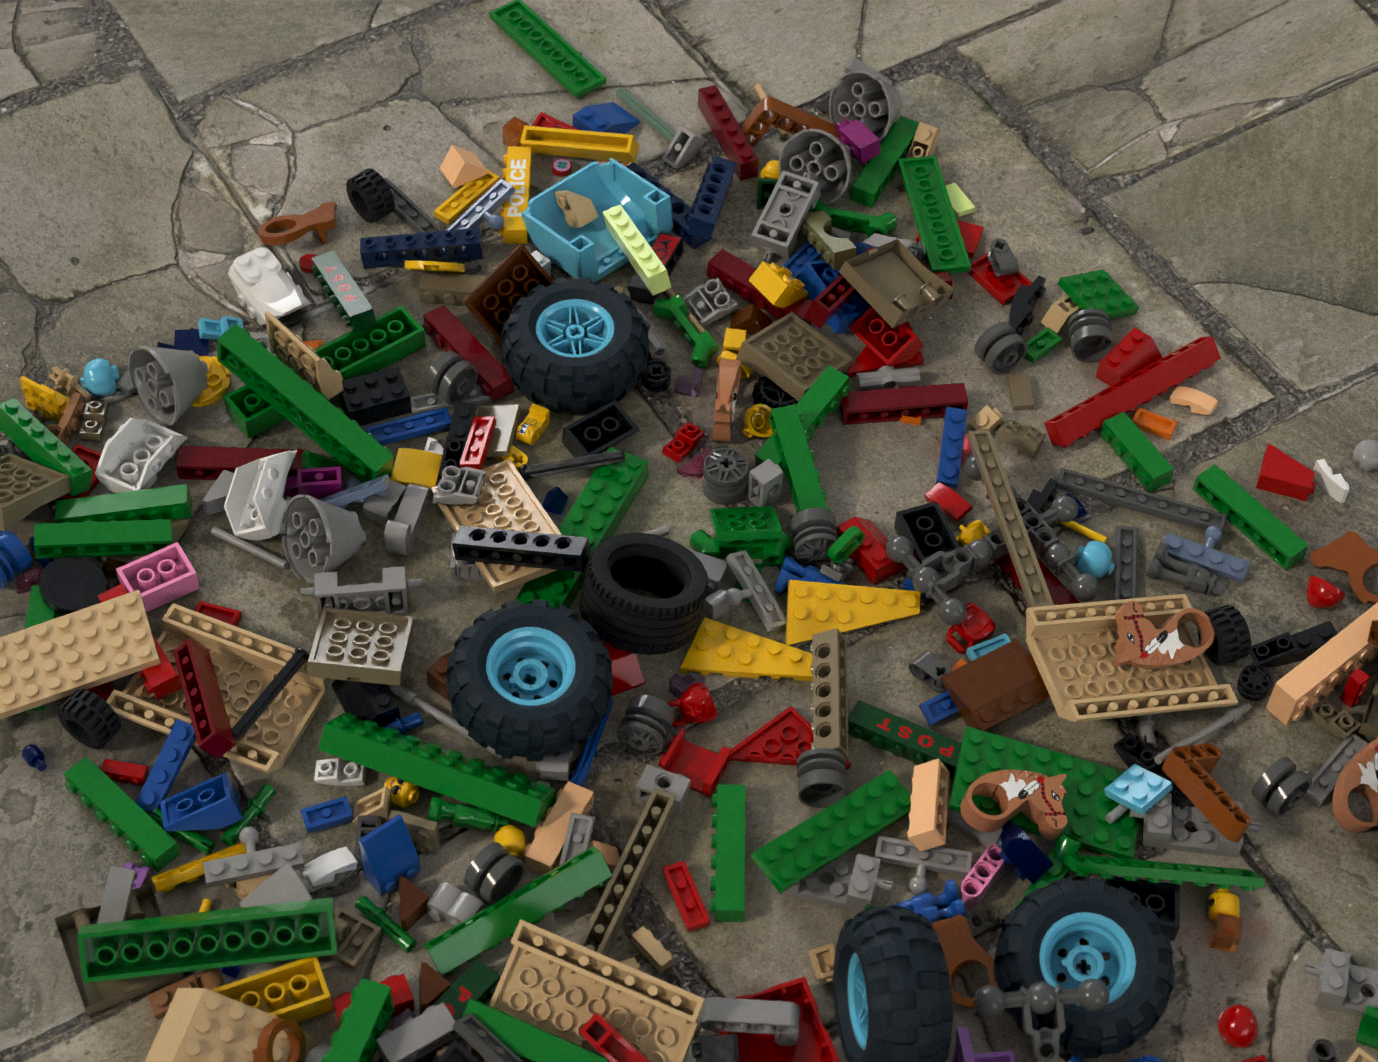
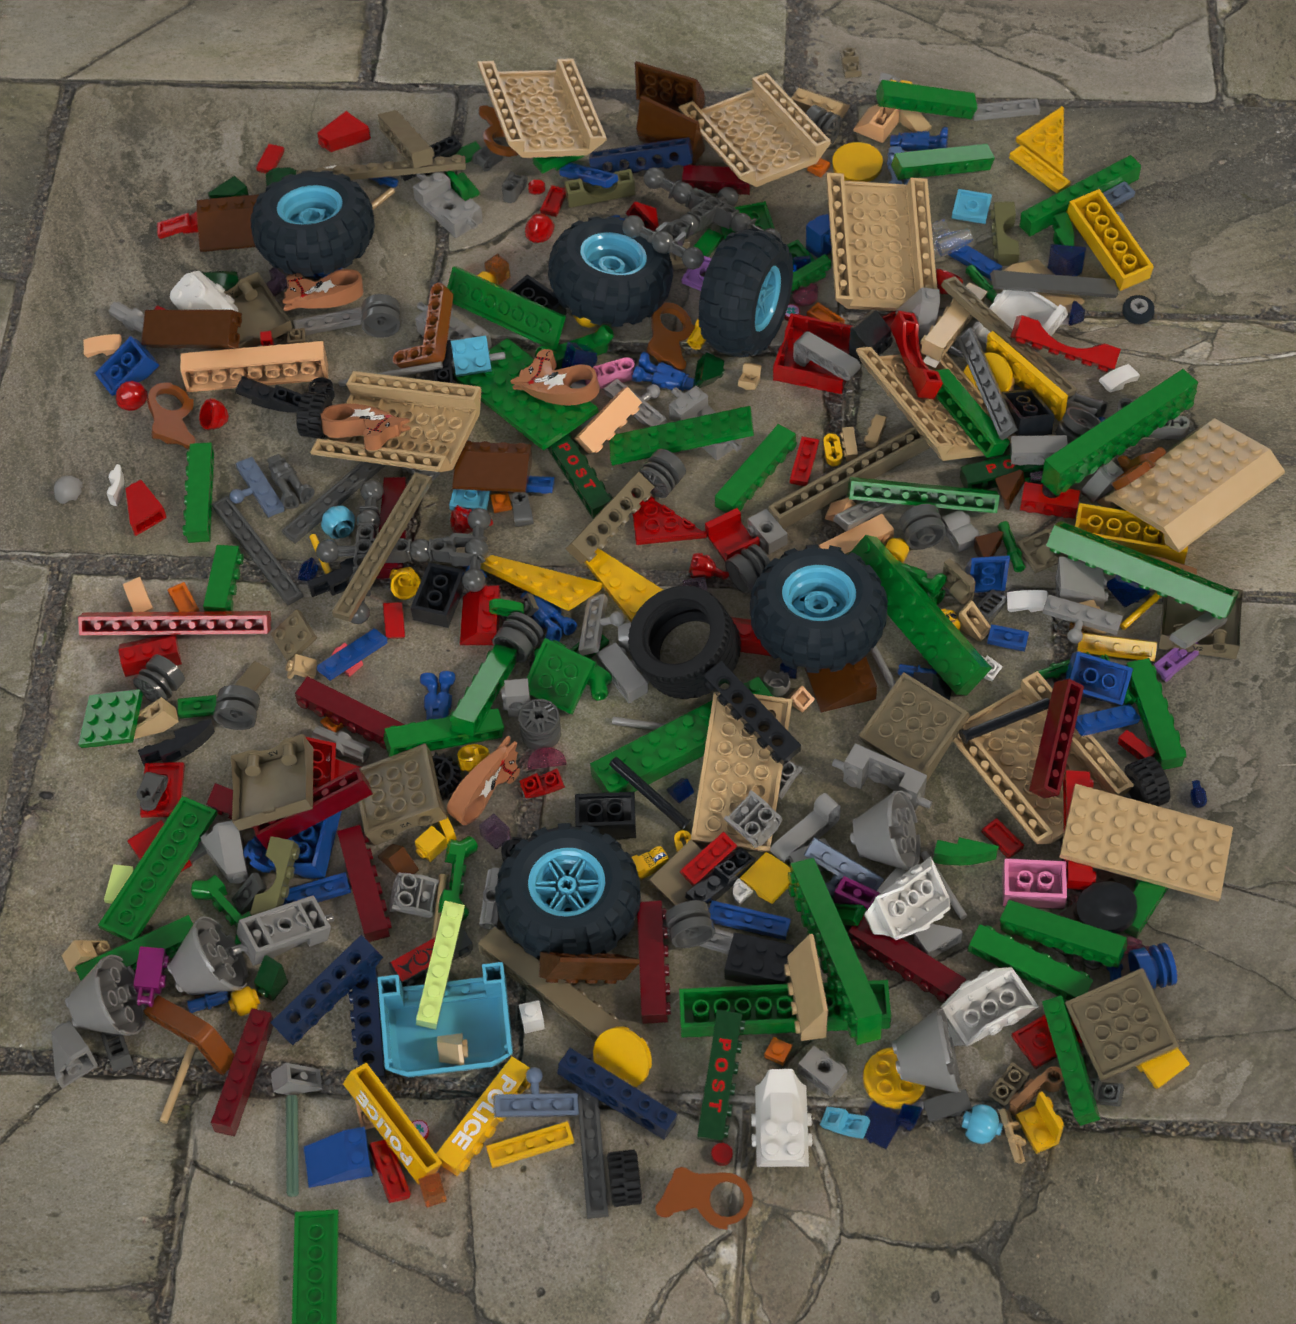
camera: 140 degrees left, 5 degrees up
(244, 577) = (964, 852): none -> green slope
(461, 167) = (511, 1175): light nougat slope -> none
(670, 928) = (828, 450): none -> yellow beam
(778, 284) = (356, 857): yellow slope -> none
(840, 456) = (437, 705): none -> blue piece

